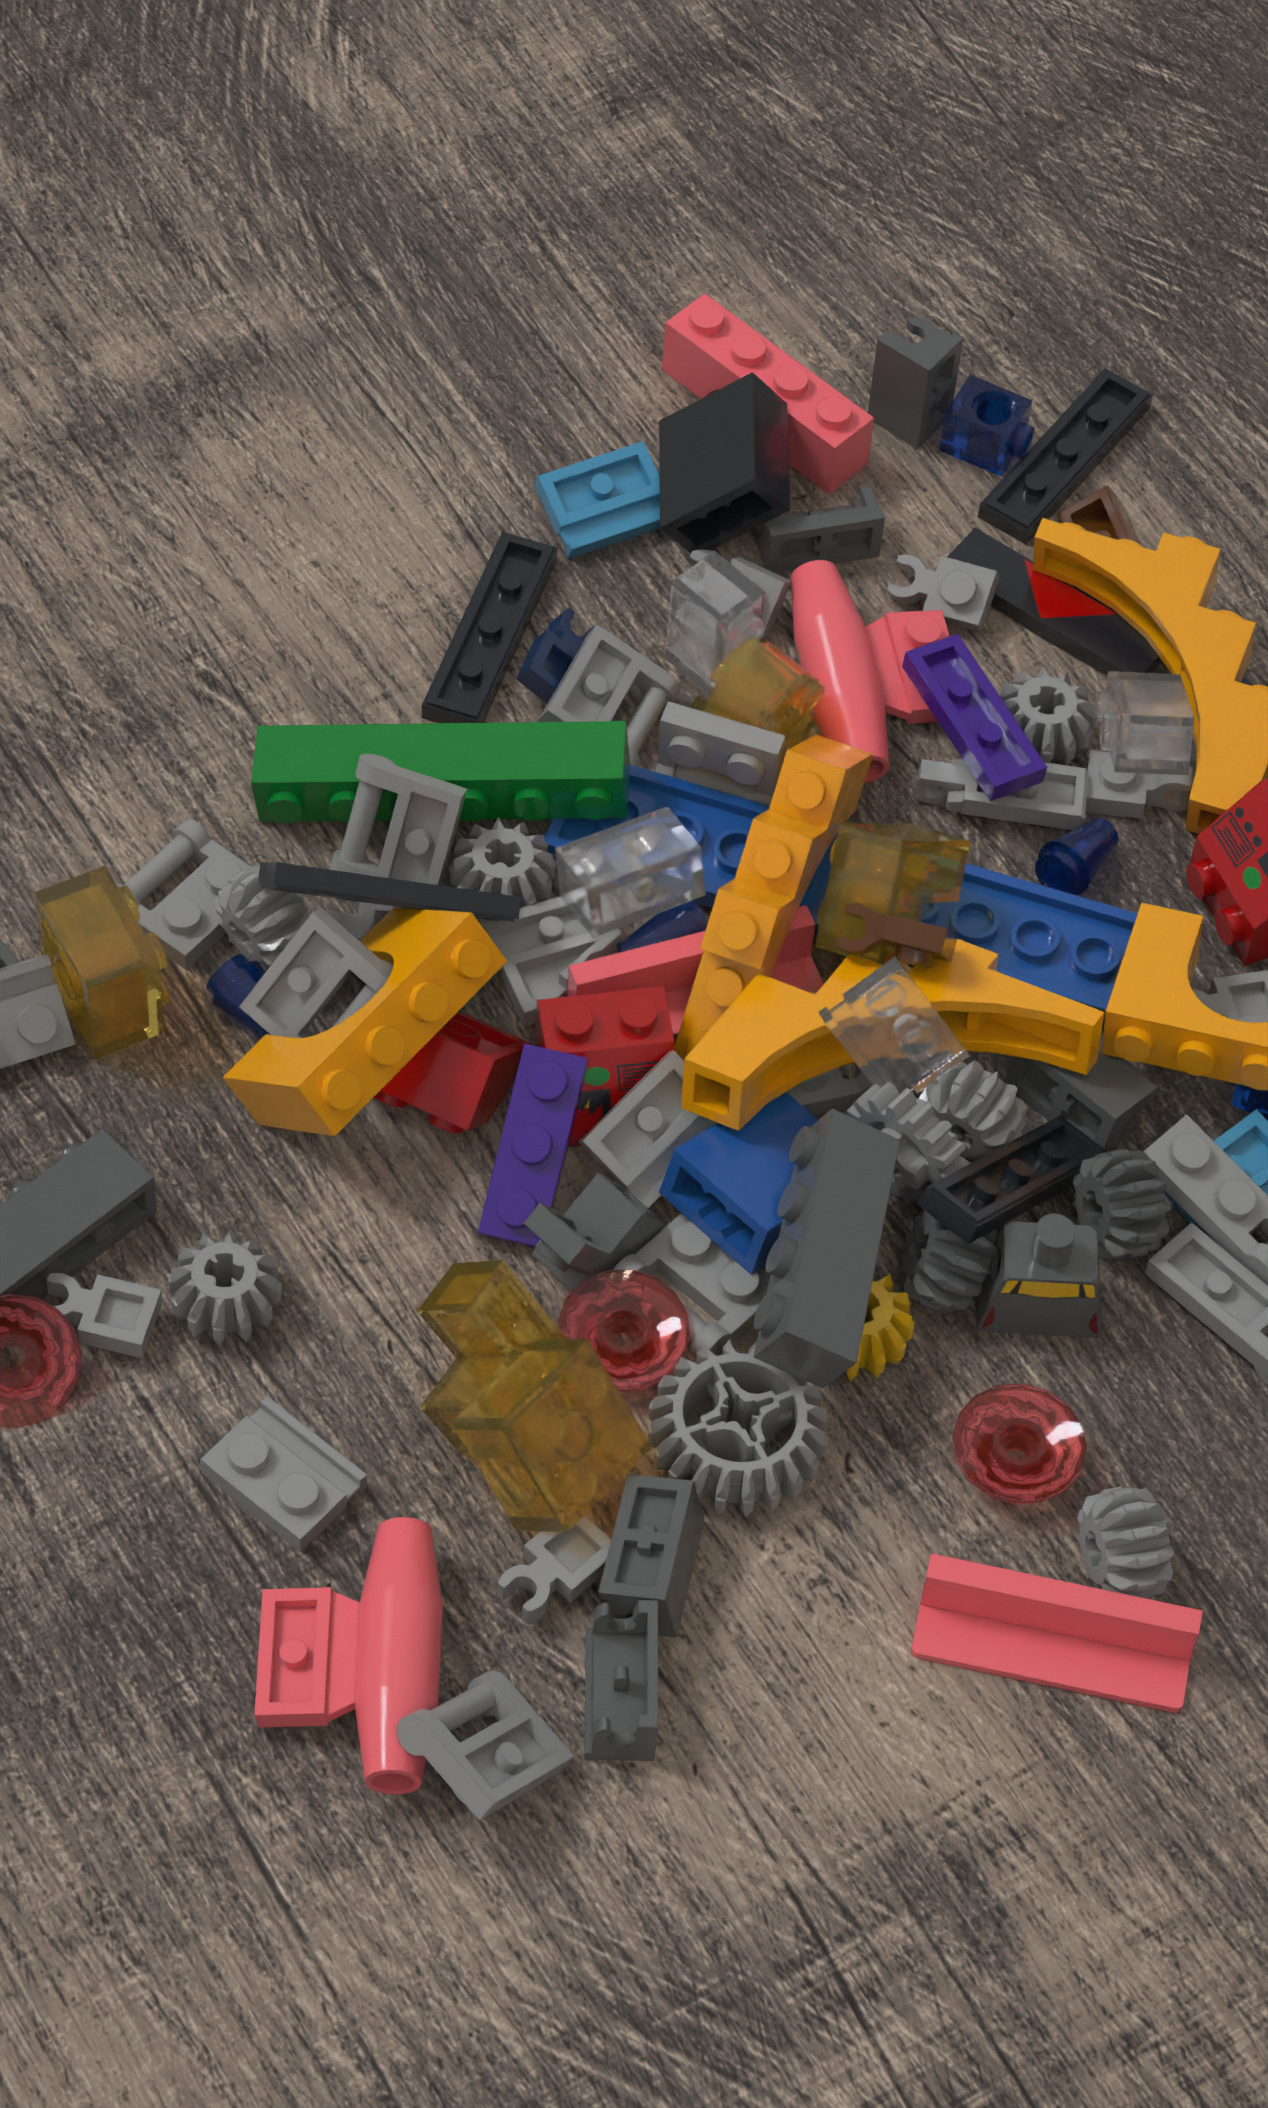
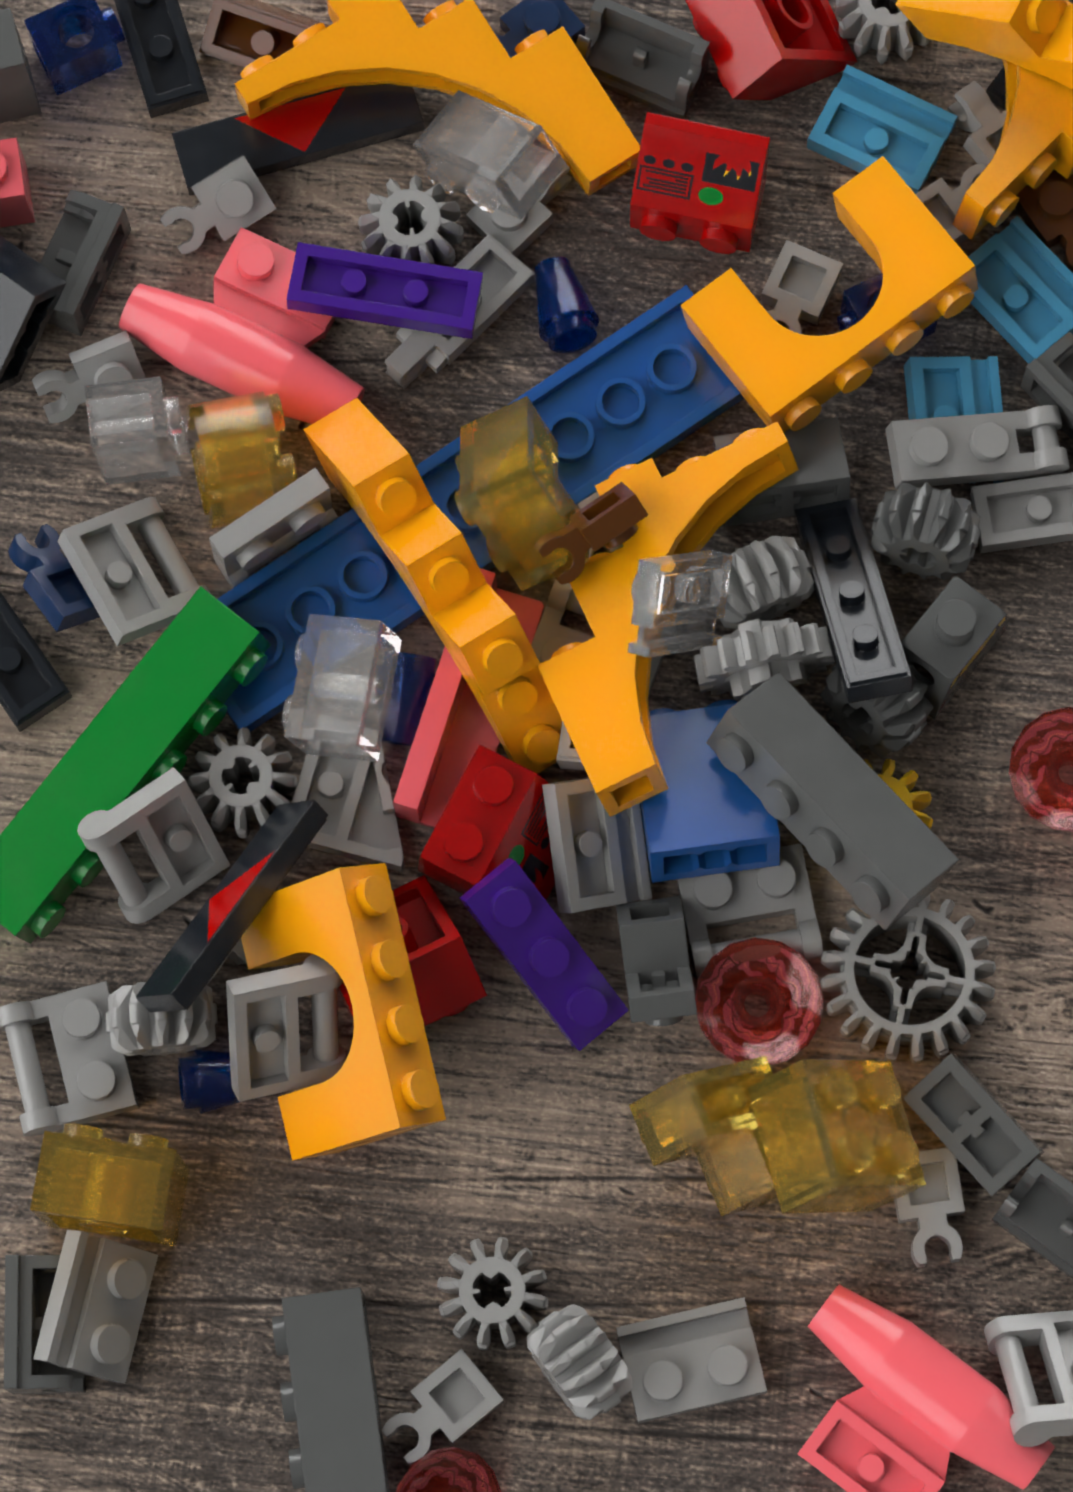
camera: 45 degrees left, 20 degrees up
(214, 1373) = (580, 1362): none -> light grey gear

